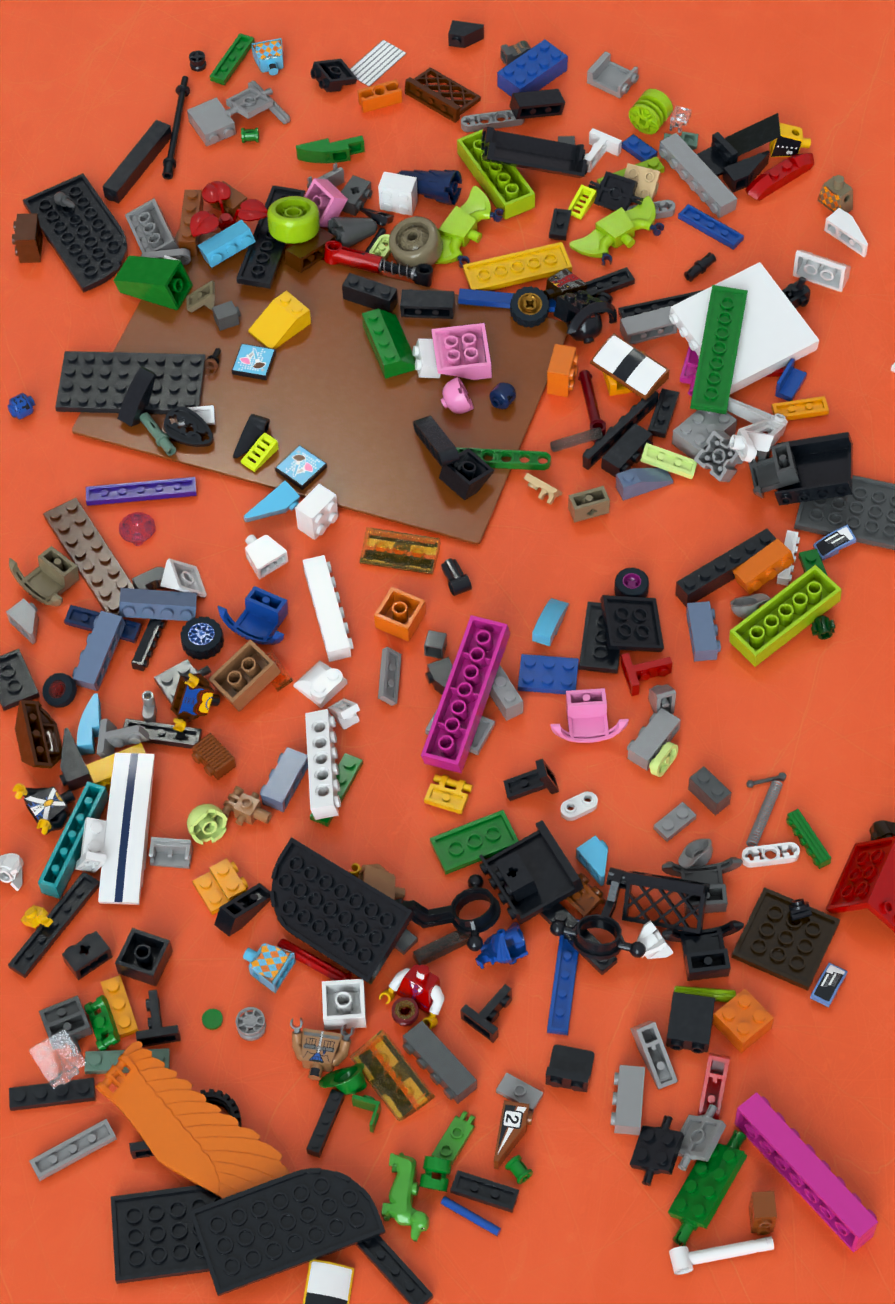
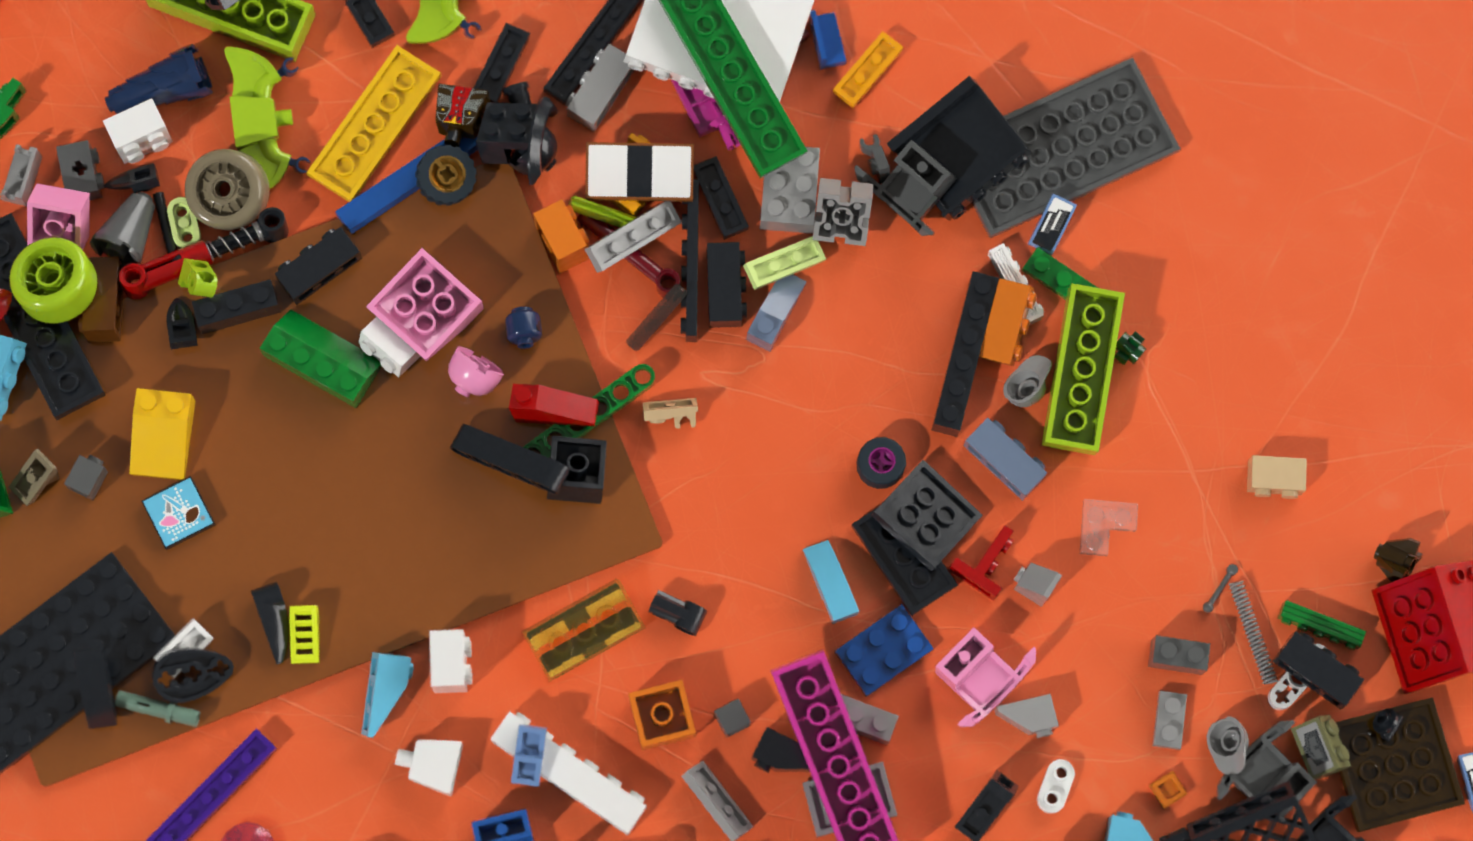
camera: 50 degrees left, 20 degrees up
(213, 361) = (129, 553): pearl gold piece -> none
(301, 467) = (370, 613): tile -> none
(314, 579) = (529, 755): none -> medium blue slope
(333, 286) = (180, 325): none -> black plate
(363, 265) = (198, 278): none -> lime leg
(479, 435) = (551, 406): none -> red slope
(588, 504) = (746, 394): dark tan brick -> none
(595, 379) = (600, 212): none -> lime axle
(598, 393) = (633, 236): none -> light grey plate
(598, 759) = (1030, 715): none -> light grey slope
(641, 854) = (1168, 789): none -> orange tile
(659, 731) = (1066, 639): light grey brick -> none
(664, 759) = (1099, 667): yellowish green plate -> none
(728, 696) = (1100, 518): none -> clear plate
(748, 893) = (1321, 747): none -> brick
(751, 437) = (859, 119): white piece -> none
(783, 852) = (1318, 669): none -> black brick
(851, 746) = (1276, 476): none -> tan brick

